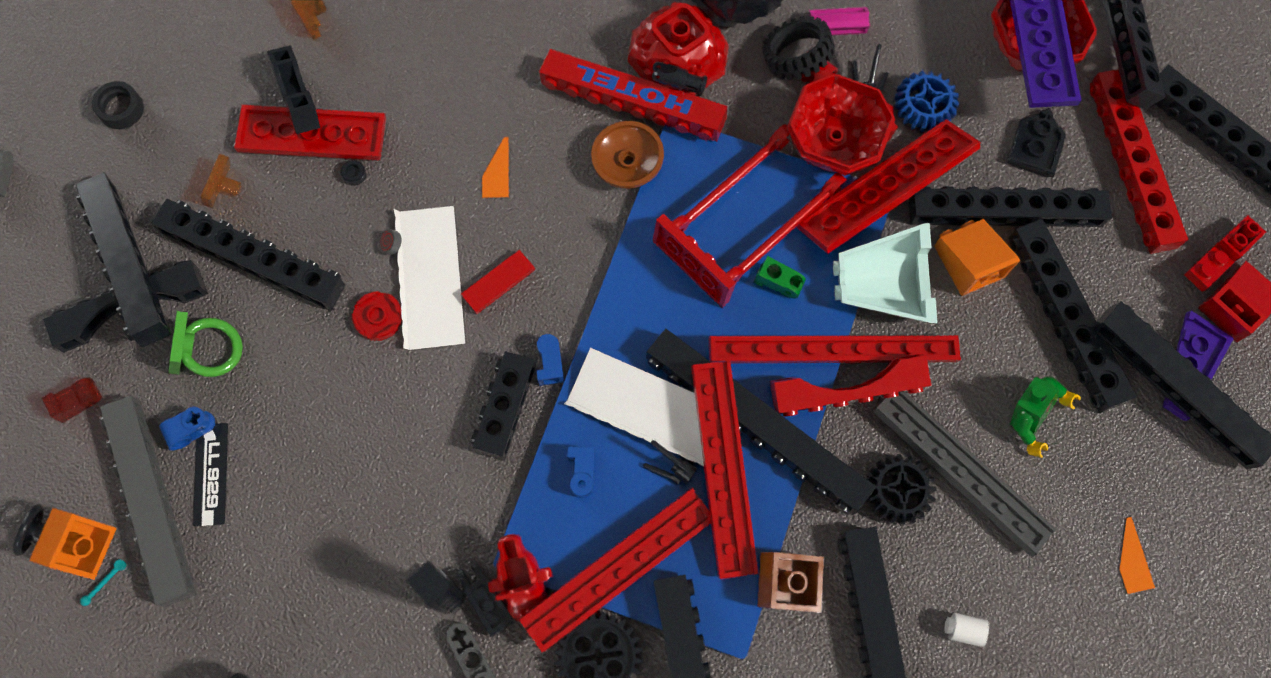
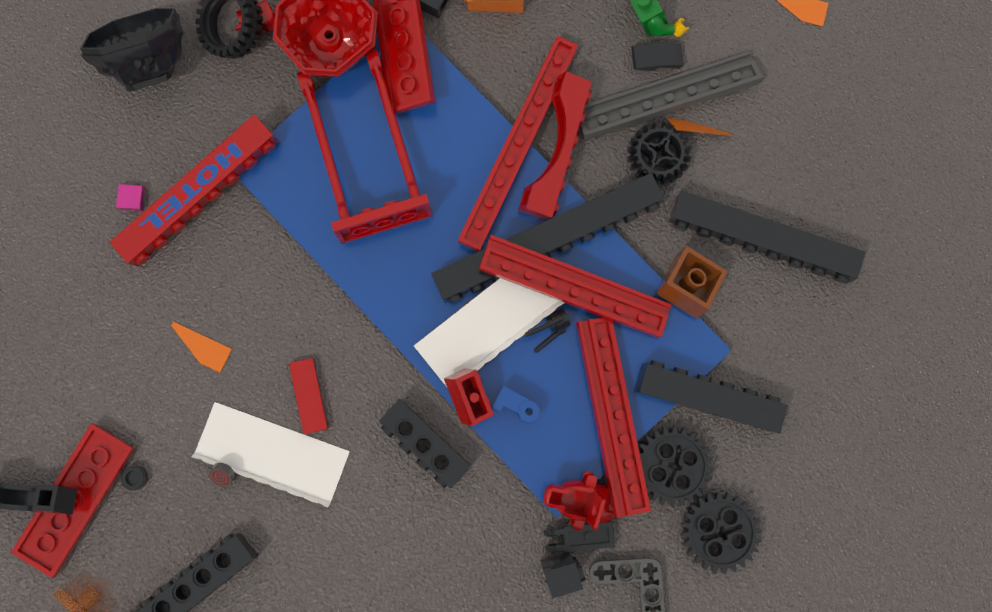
camera: 60 degrees left, 10 degrees up
(377, 316) = (285, 517): red tile -> none
(552, 369) = (396, 381): blue leg -> none
(567, 420) = (469, 396): none -> red brick
(599, 49) = (130, 197): none -> dark pink tile
(627, 142) = (237, 217): dark orange dish -> none
(679, 78) = (205, 142): black piece -> none
(682, 38) = (184, 136): red rock -> none
(780, 278) = (433, 154): green leg -> none
(889, 275) = (481, 63): light aqua cone -> none
(946, 508) = (685, 125): none -> orange sticker
(967, 629) = (792, 164): white brick -> none
(996, 440) = (657, 55): none -> black slope

